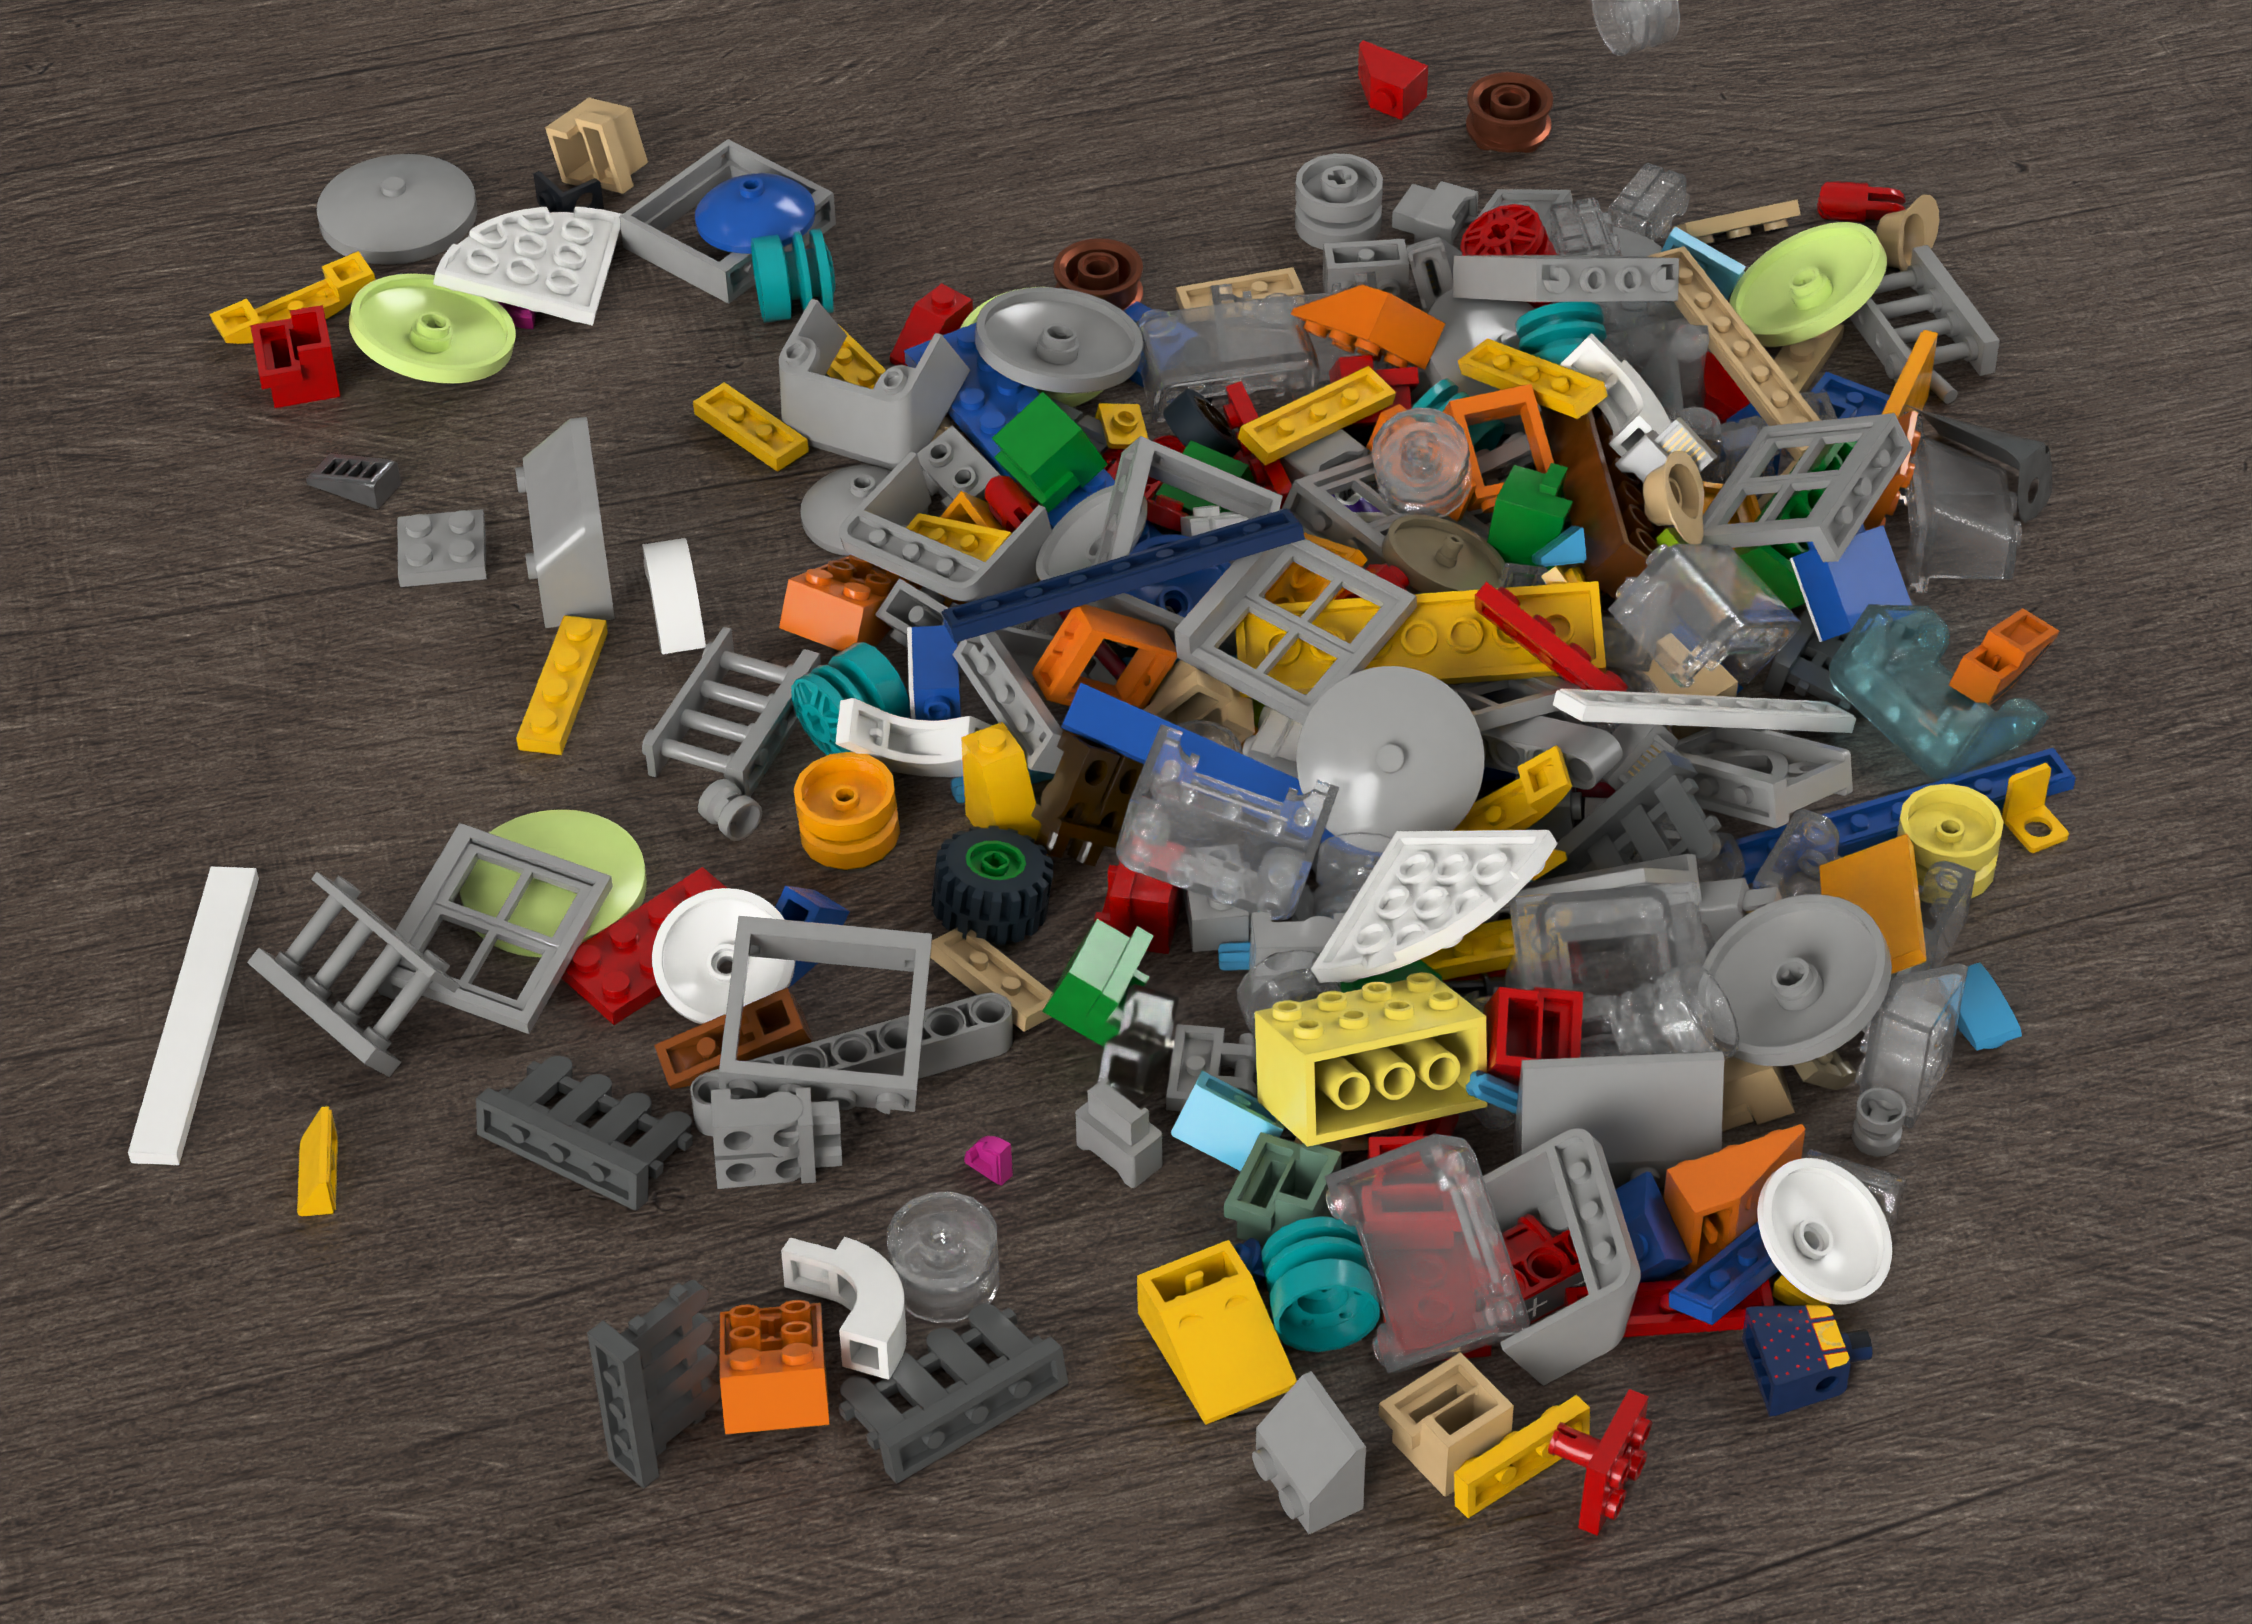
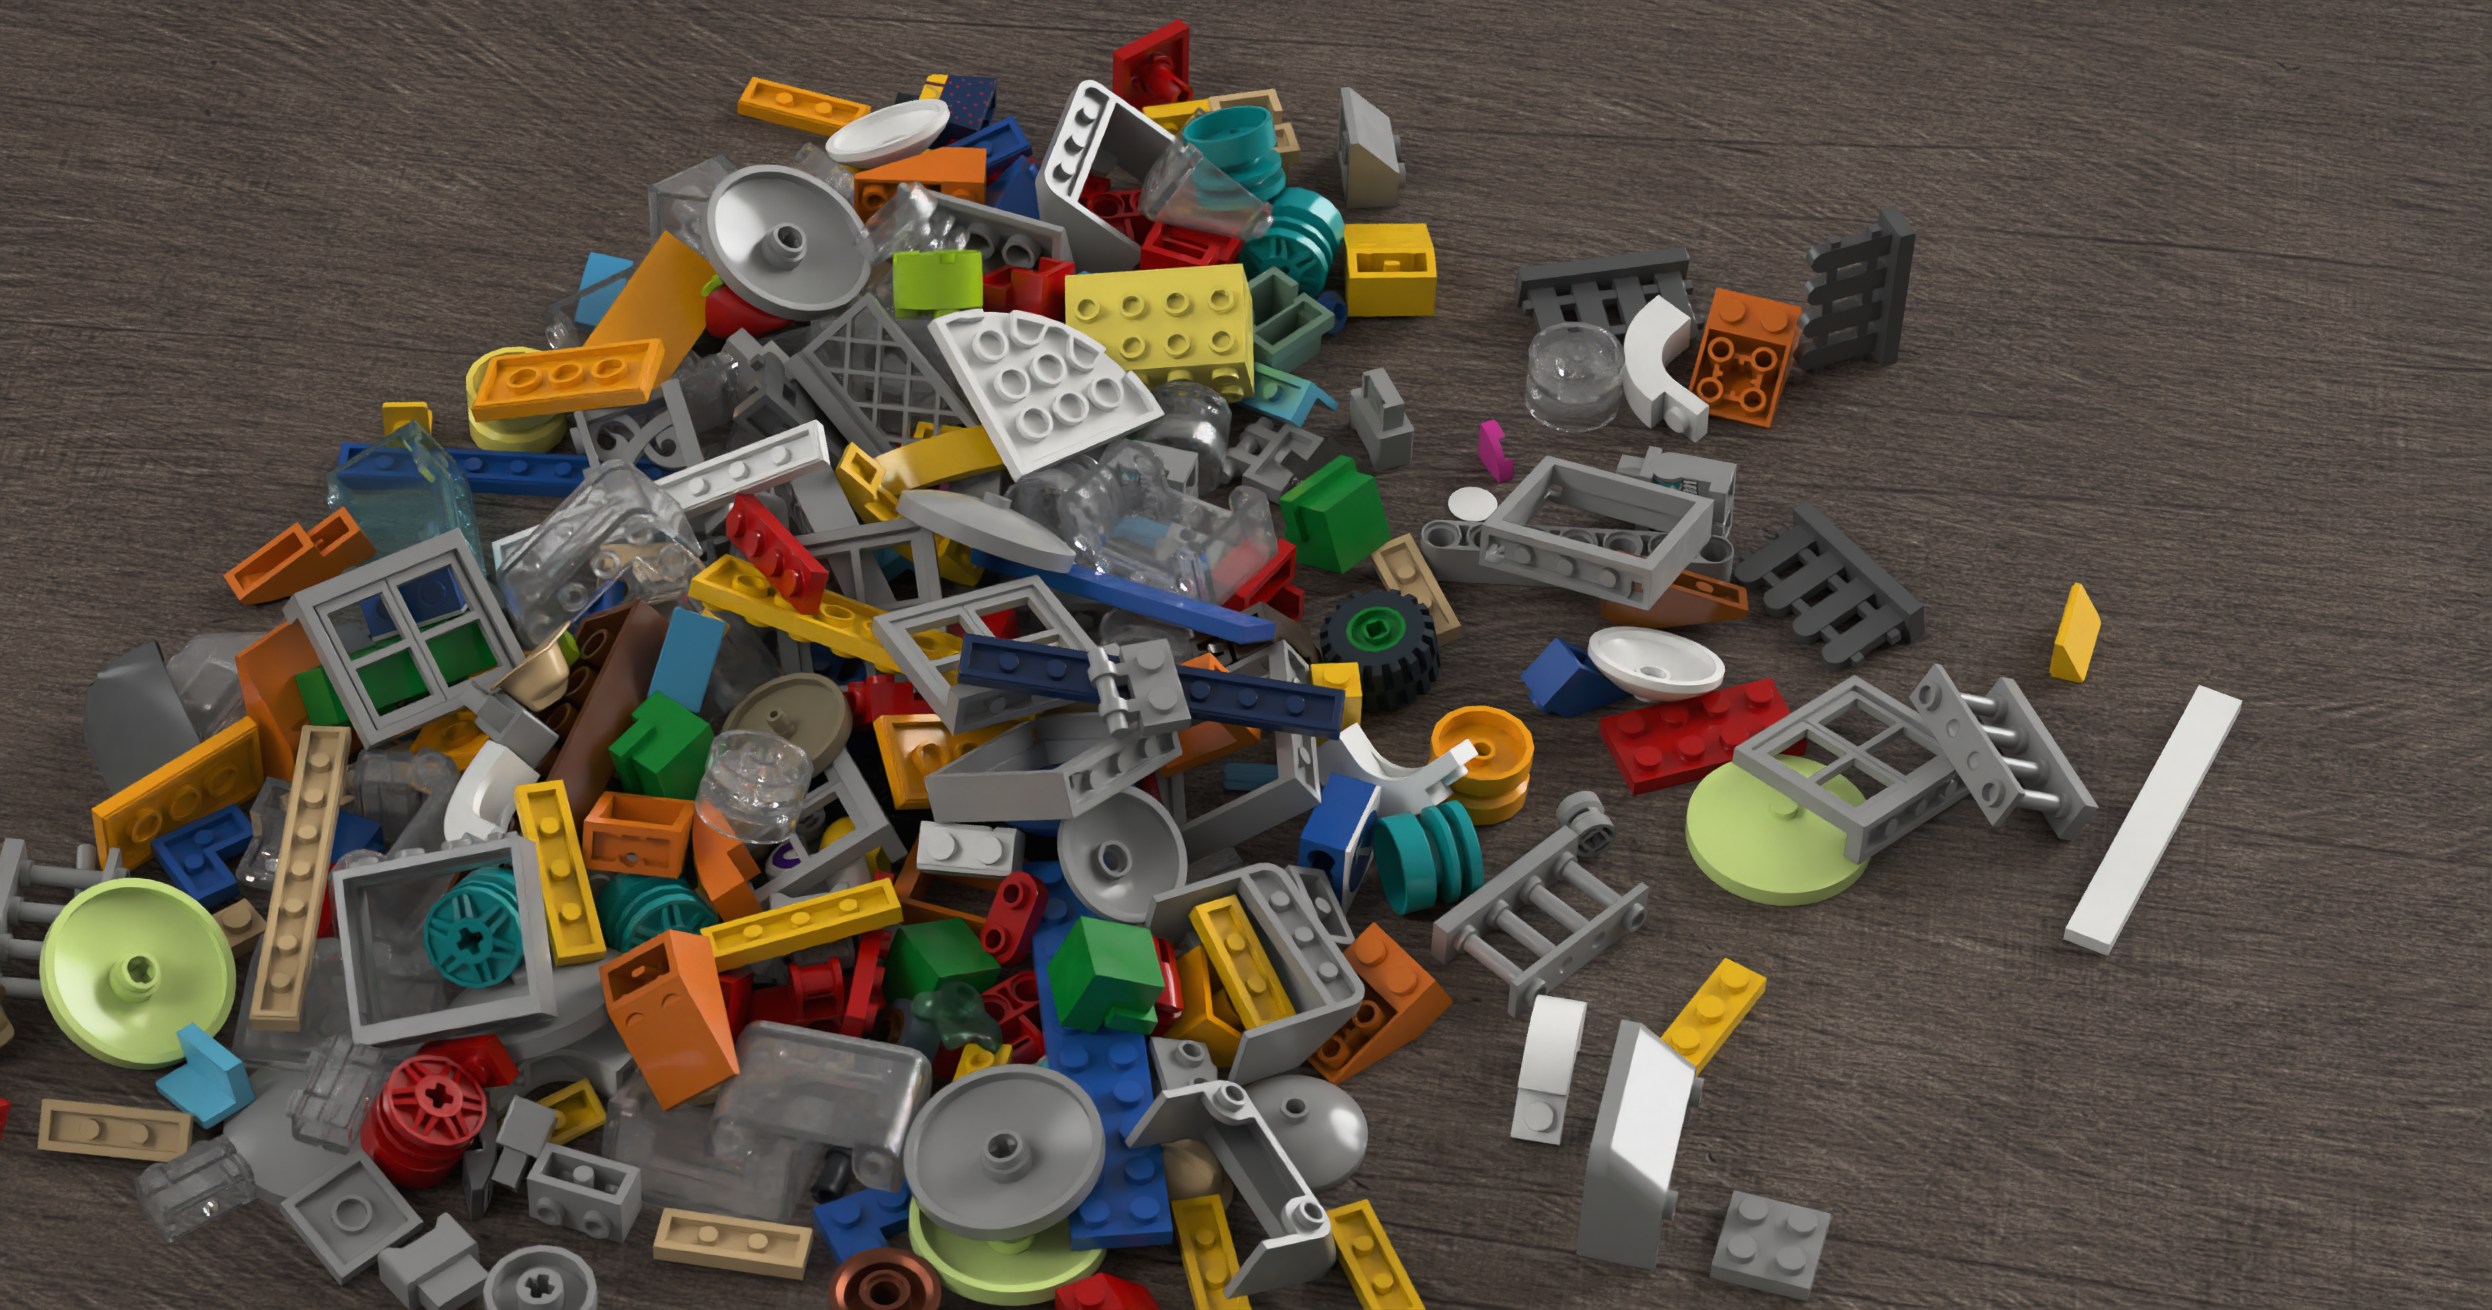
camera: 160 degrees left, 0 degrees up
(990, 1116) = (1472, 504): none -> white sticker
(1116, 547) = (1152, 684): none -> light grey plate
(1162, 423) = (958, 1016): none -> clear green plate
(1416, 1268) = (1241, 146): none -> teal wheel
(1604, 923) = (937, 282): none -> lime brick
(1885, 792) = (568, 380): none -> light orange tile
(1966, 1321) = (798, 107): none -> light orange tile

